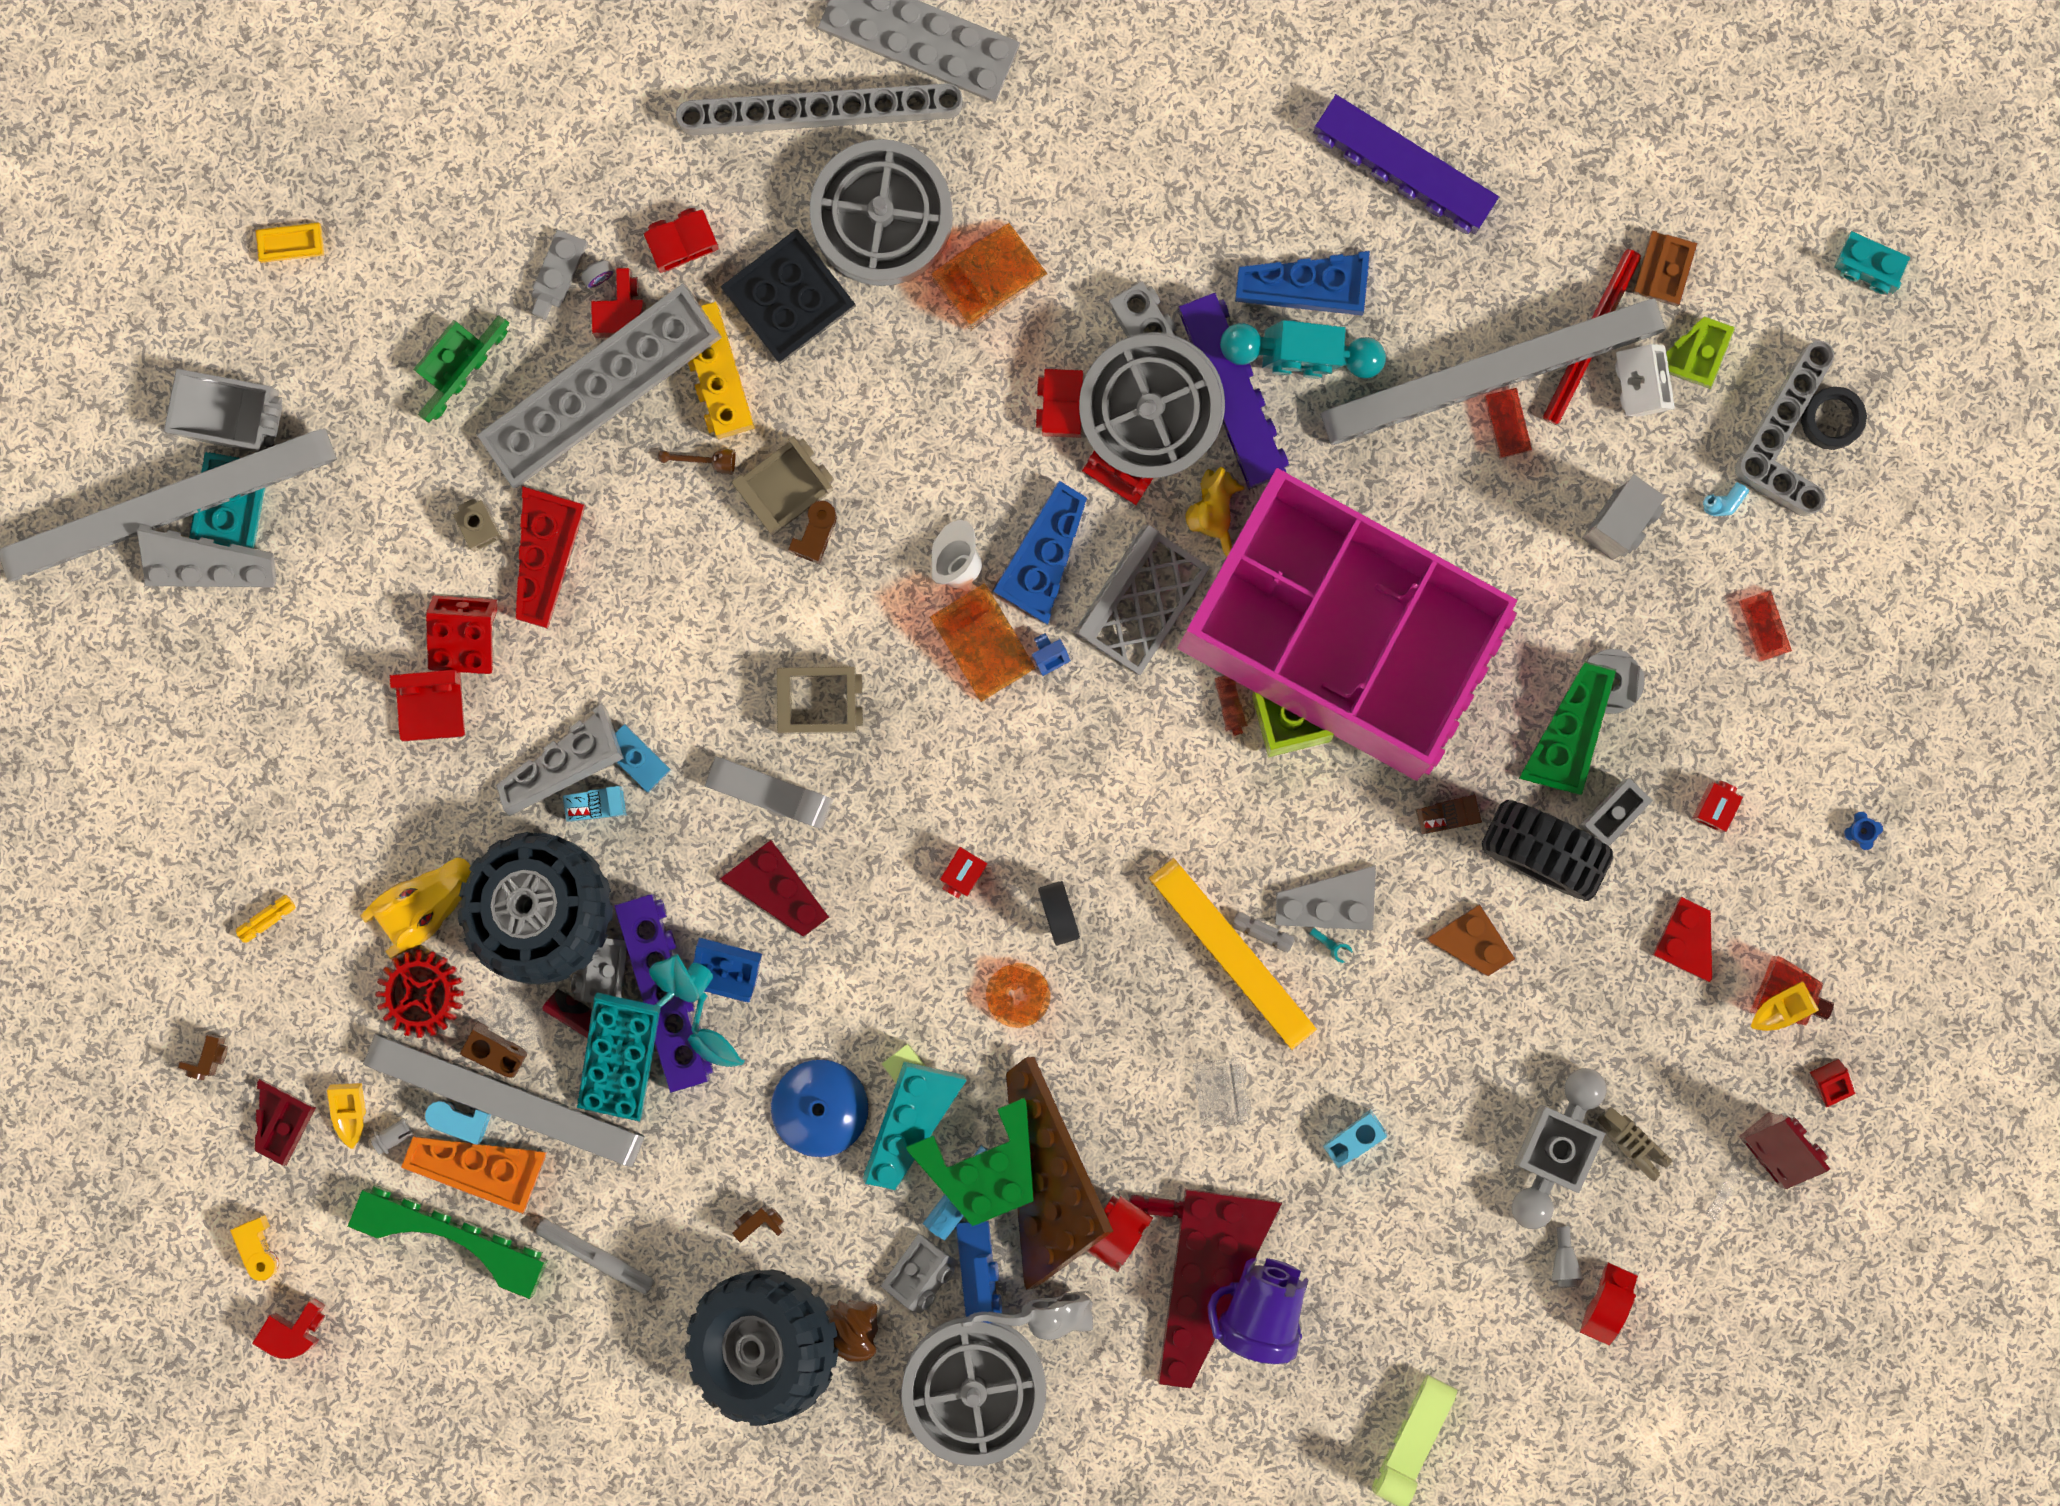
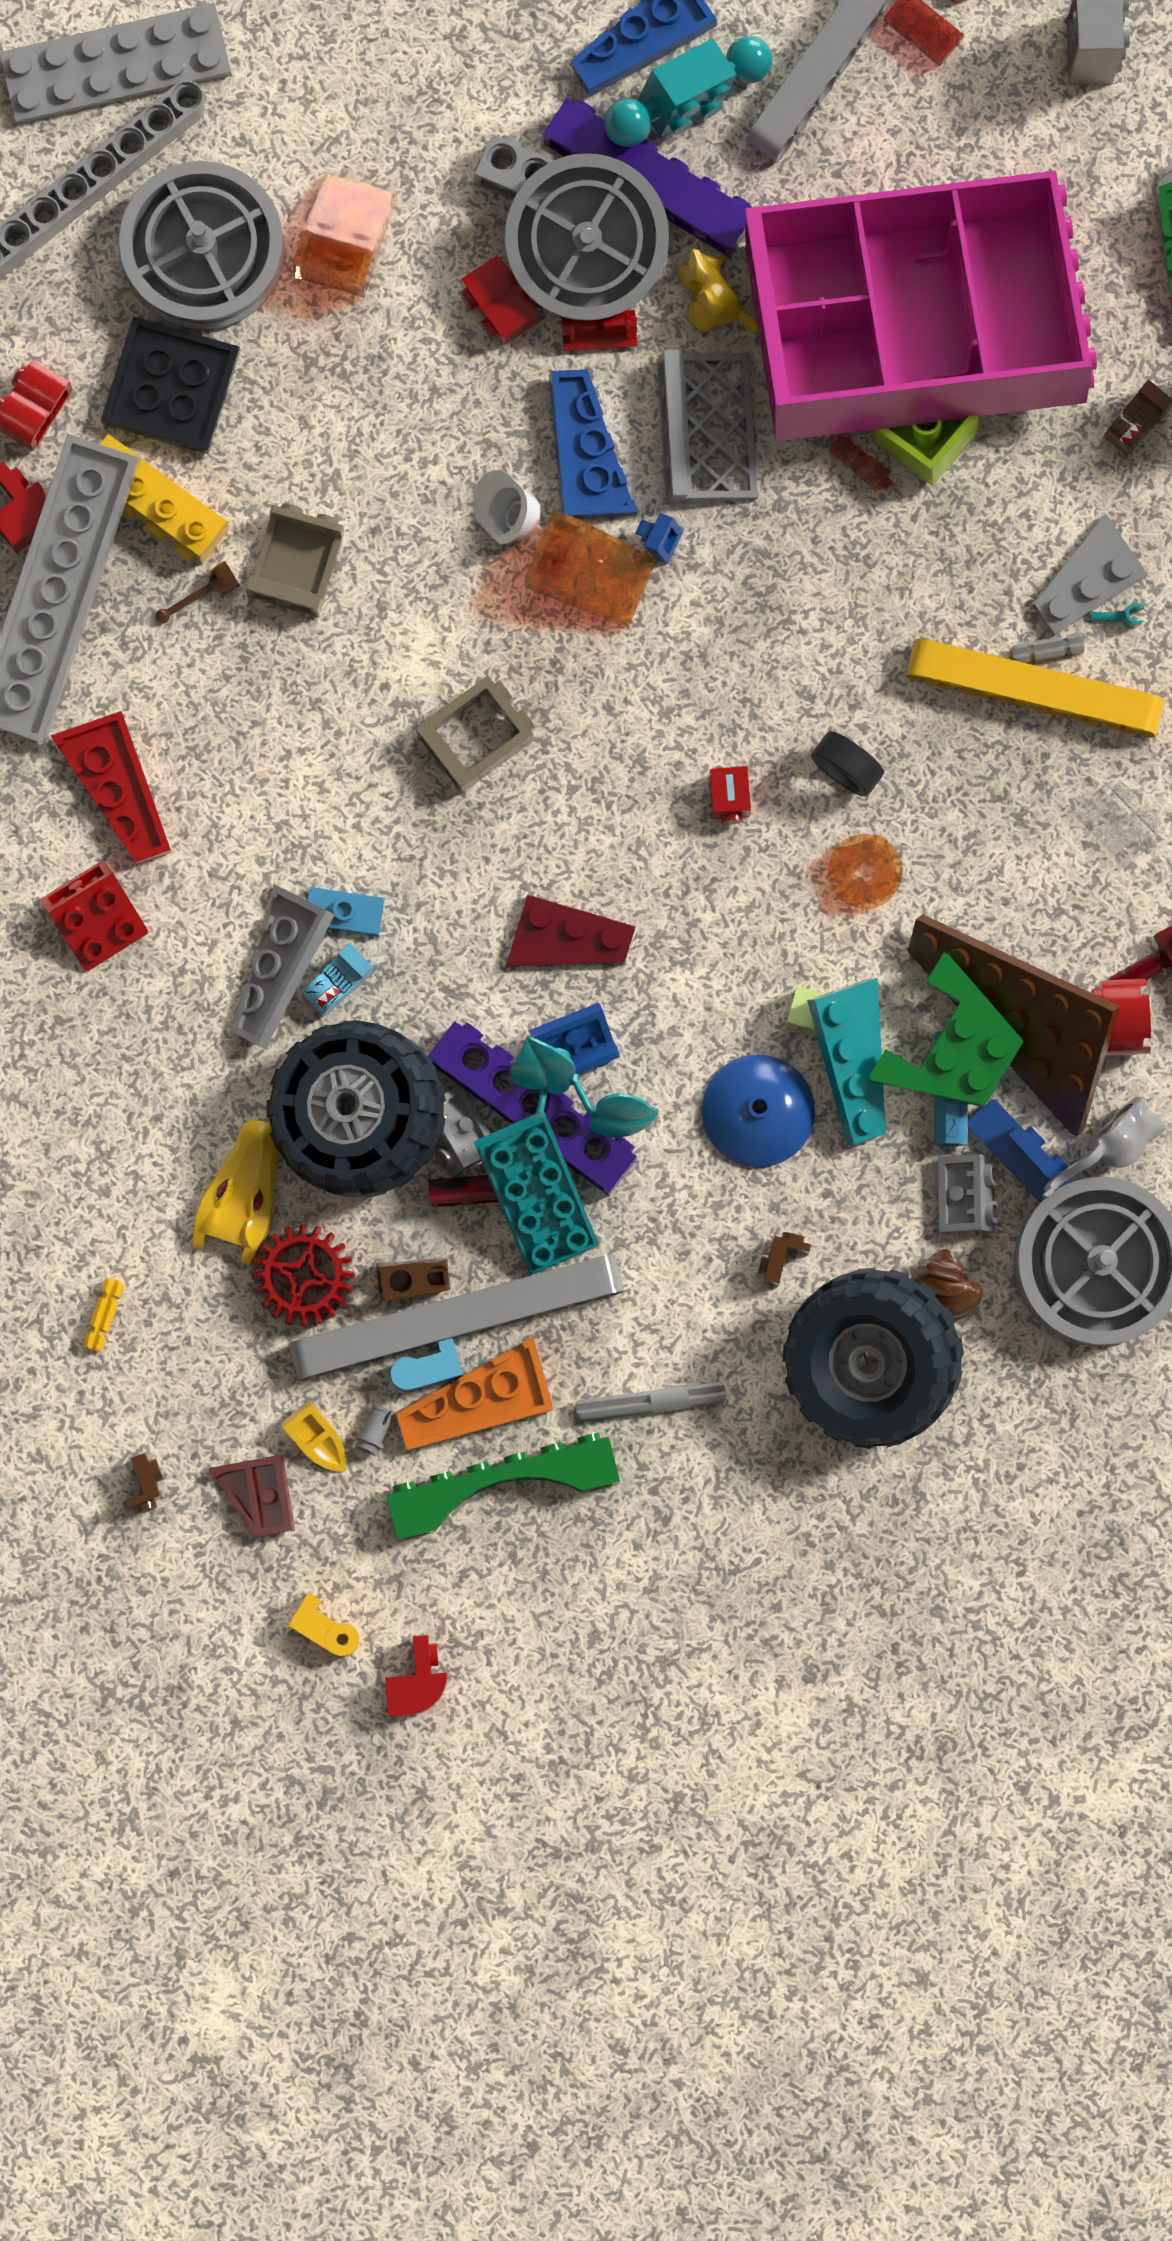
camera: 40 degrees left, 5 degrees down
(429, 705) = (111, 1001): red bracket -> none
(477, 524) = (34, 801): dark tan brick -> none
(769, 792) = (495, 850): light grey beam -> none
(817, 533) = (356, 569): reddish brown leg -> none

